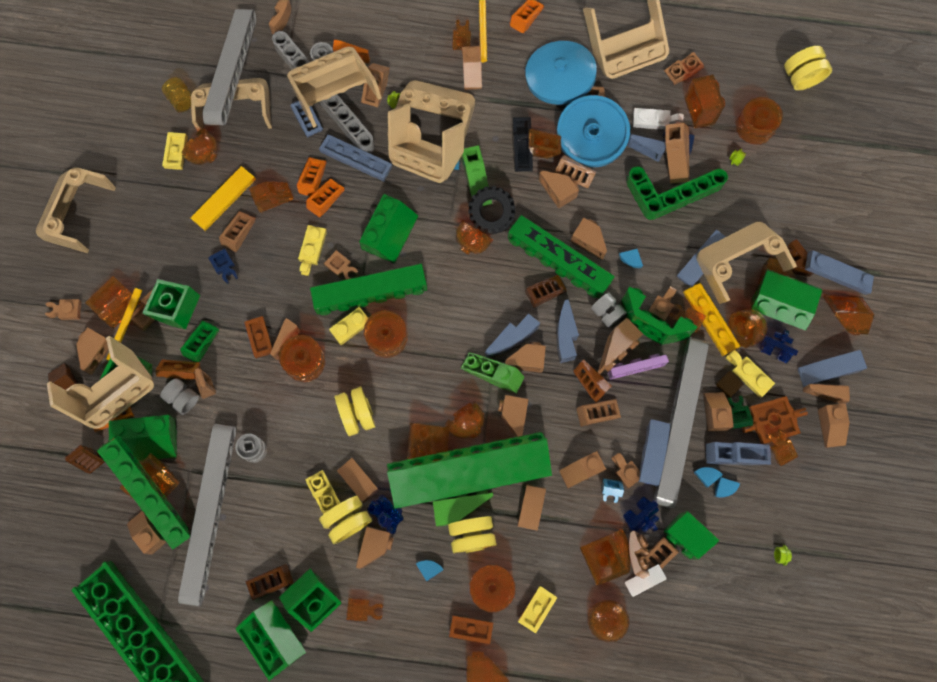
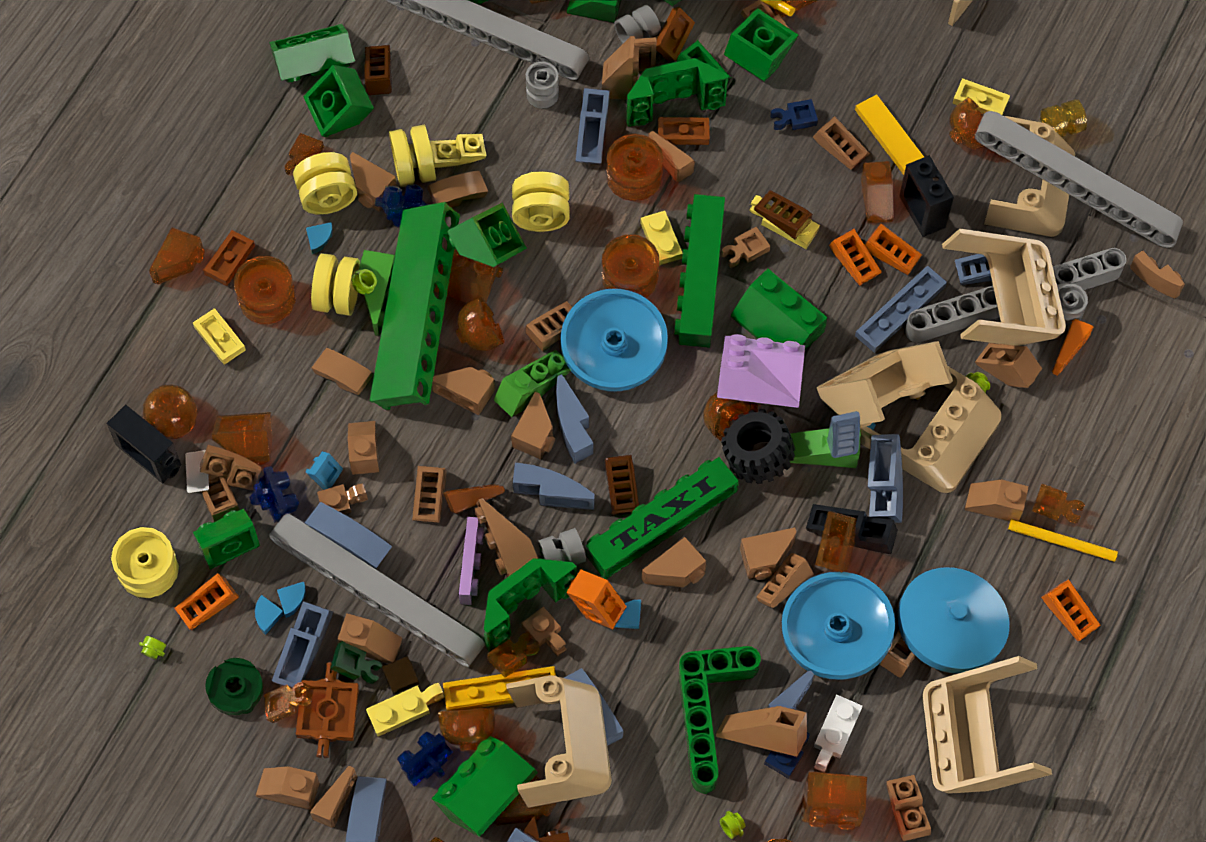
camera: 110 degrees right, 10 degrees down
(218, 331) = (675, 81): none -> green slope
(226, 390) = (621, 70): none -> medium nougat slope
(274, 152) = (924, 198): none -> black window
(274, 401) = (592, 126): none -> sand blue slope
(310, 229) = (792, 229): none -> reddish brown slope
(387, 579) = (325, 183): none -> light yellow wheel
(400, 436) = (488, 237): none -> green slope
(440, 222) = (761, 371): none -> lavender slope
(445, 327) = (614, 339): none -> dark azure dish
(452, 371) = (534, 327): none -> medium nougat slope
(466, 511) = (364, 281): none -> lime plate
(474, 152) = (844, 434): none -> sand blue slope
(488, 129) = (886, 478): none -> sand blue slope
(638, 274) = (596, 599): none -> orange brick
(648, 623) = (144, 444): none -> black window
(722, 526) = (211, 609): none -> orange slope
(744, 585) = (145, 562): none -> light yellow wheel
(776, 496) = (242, 700): none -> dark green plate

